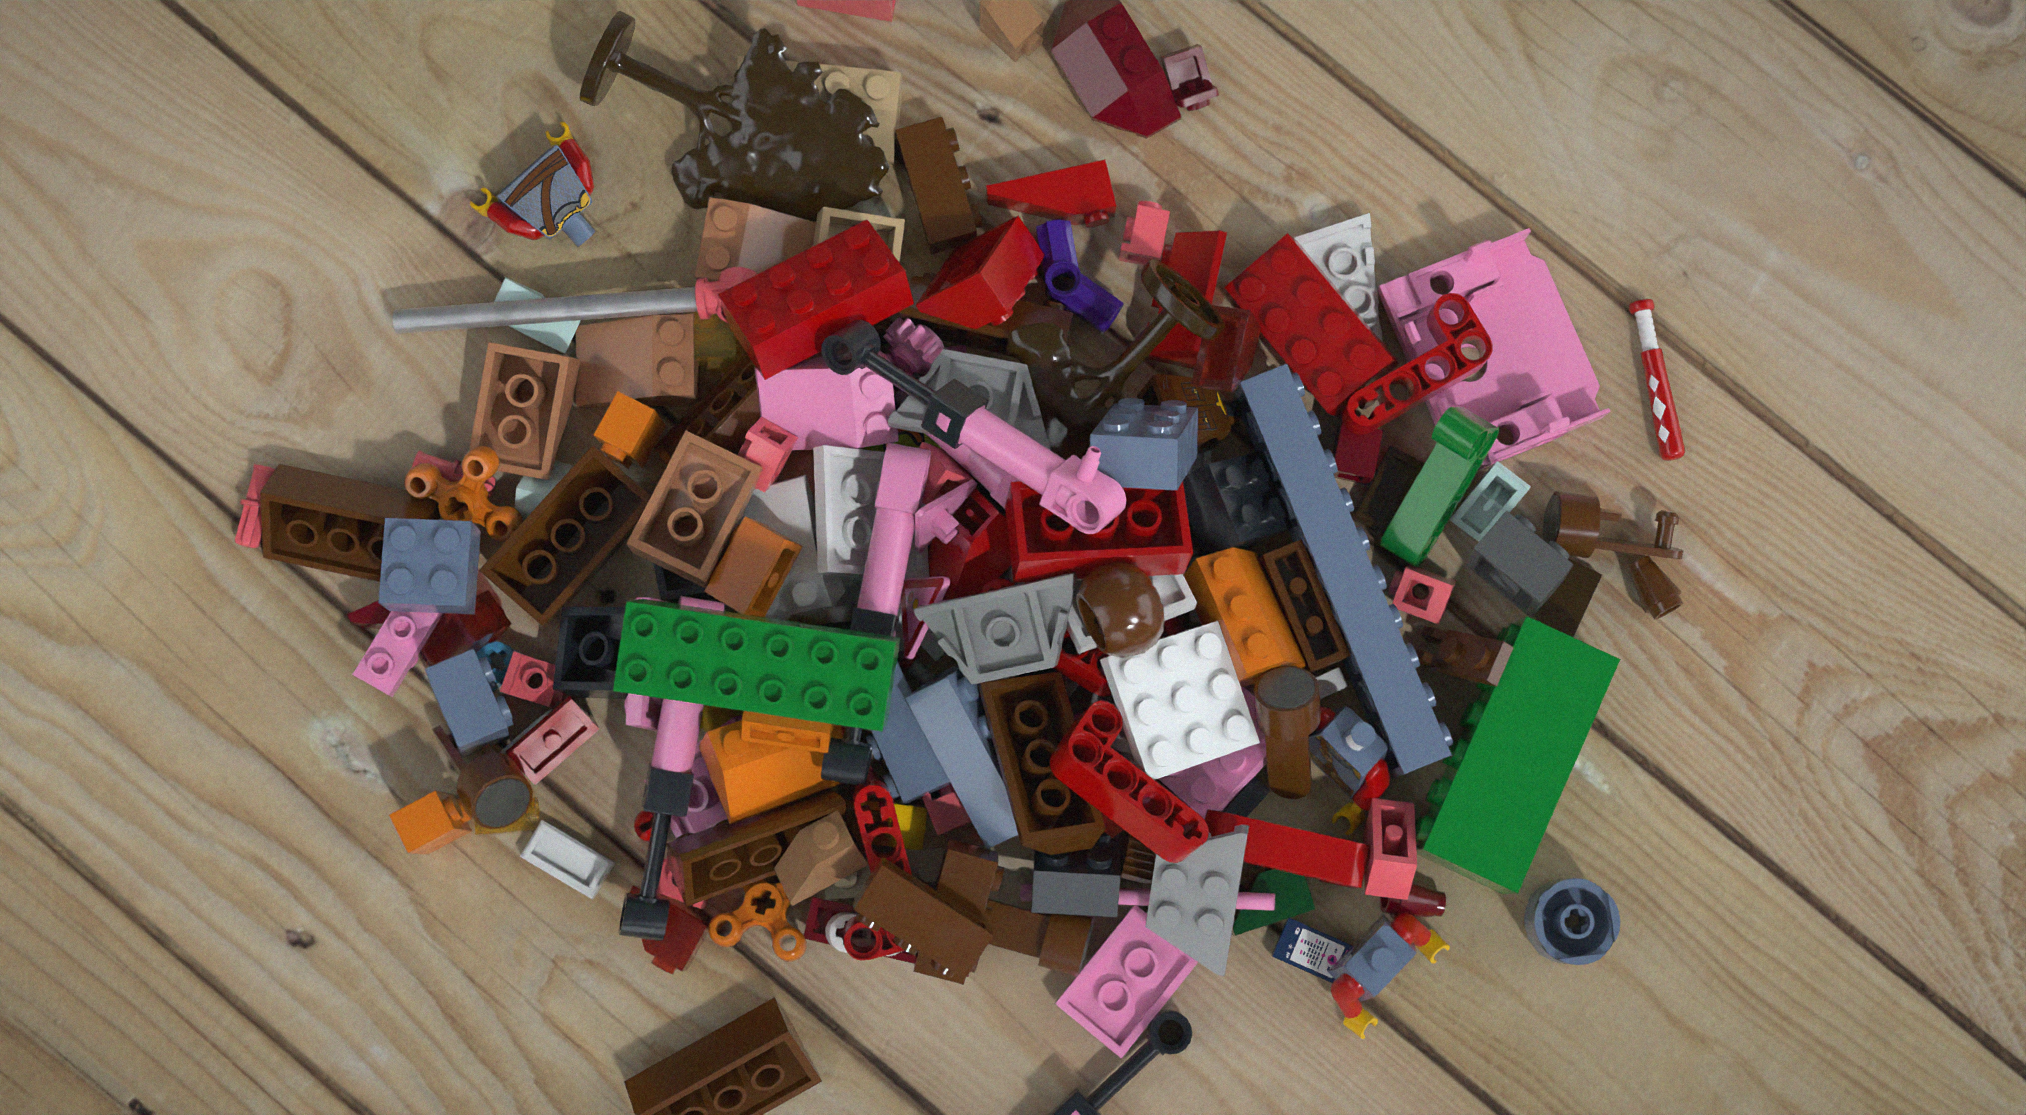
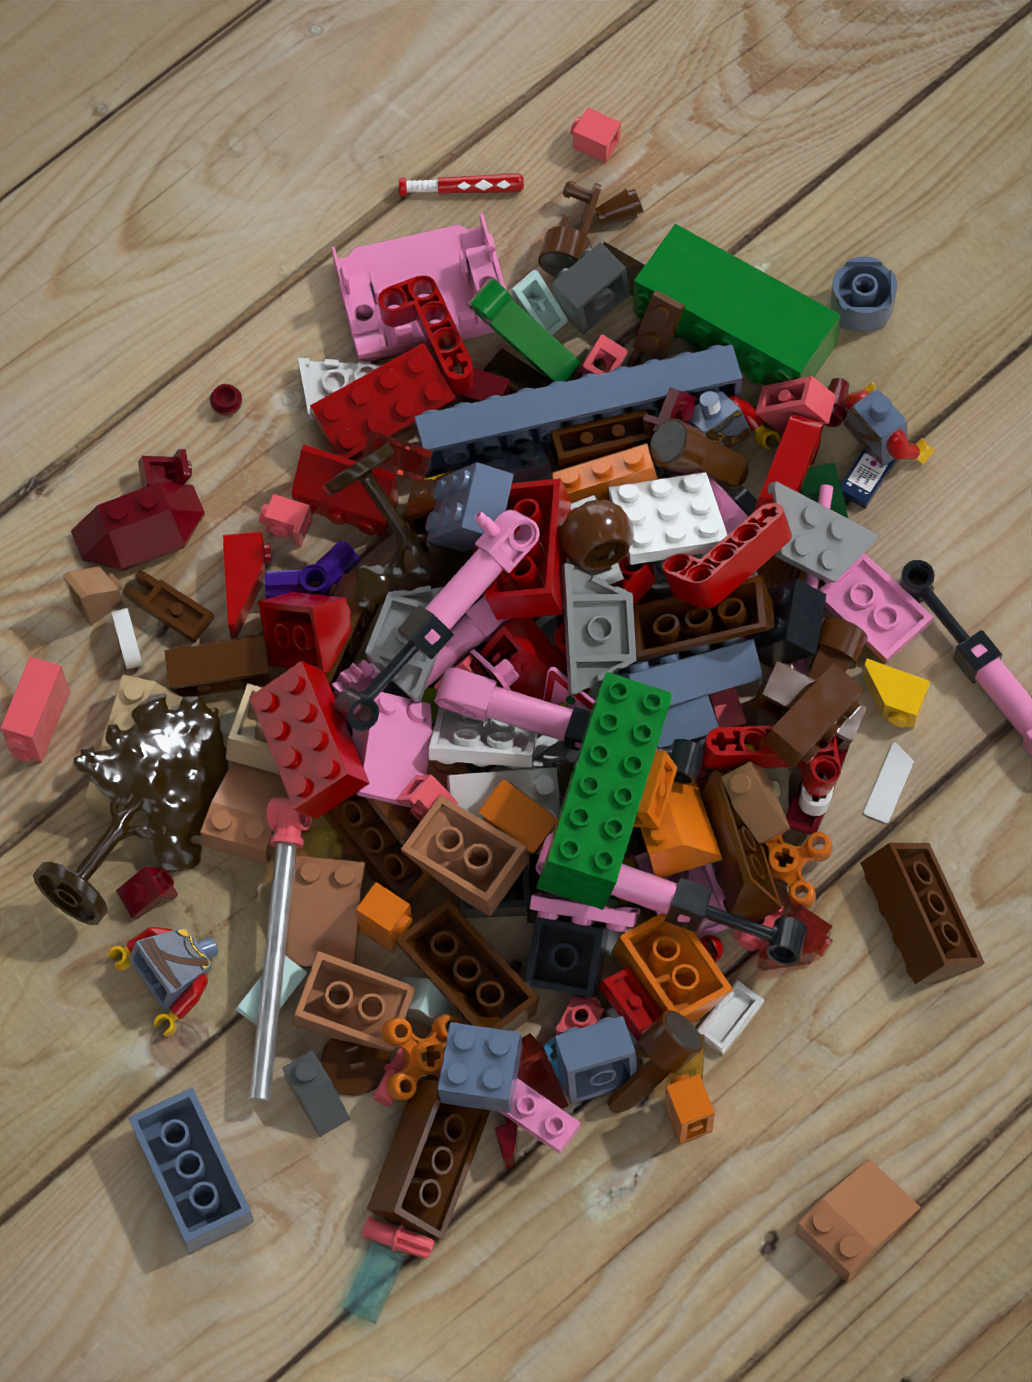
camera: 80 degrees left, 15 degrees down
(204, 486) = (373, 1283): none -> clear light blue plate
(303, 258) = (191, 1169): none -> sand blue brick
(328, 1040) = (856, 1219): none -> nougat slope
(416, 385) = (315, 1093): none -> dark grey slope
(452, 423) = (354, 1067): none -> reddish brown piece
(598, 785) = (672, 967): none -> orange slope
(644, 153) = (146, 890): none -> dark red bracket
(895, 1023) = (889, 784): none -> white sticker
(961, 72) = (127, 638): none -> white beam
(1009, 1021) = (895, 693): none -> yellow slope
(1010, 117) = (170, 606): none -> reddish brown hinge
(1302, 136) = (226, 399): none -> dark red plate
(1342, 693) = (676, 406): none -> dark red bracket
(1759, 542) = (596, 134): none -> coral brick

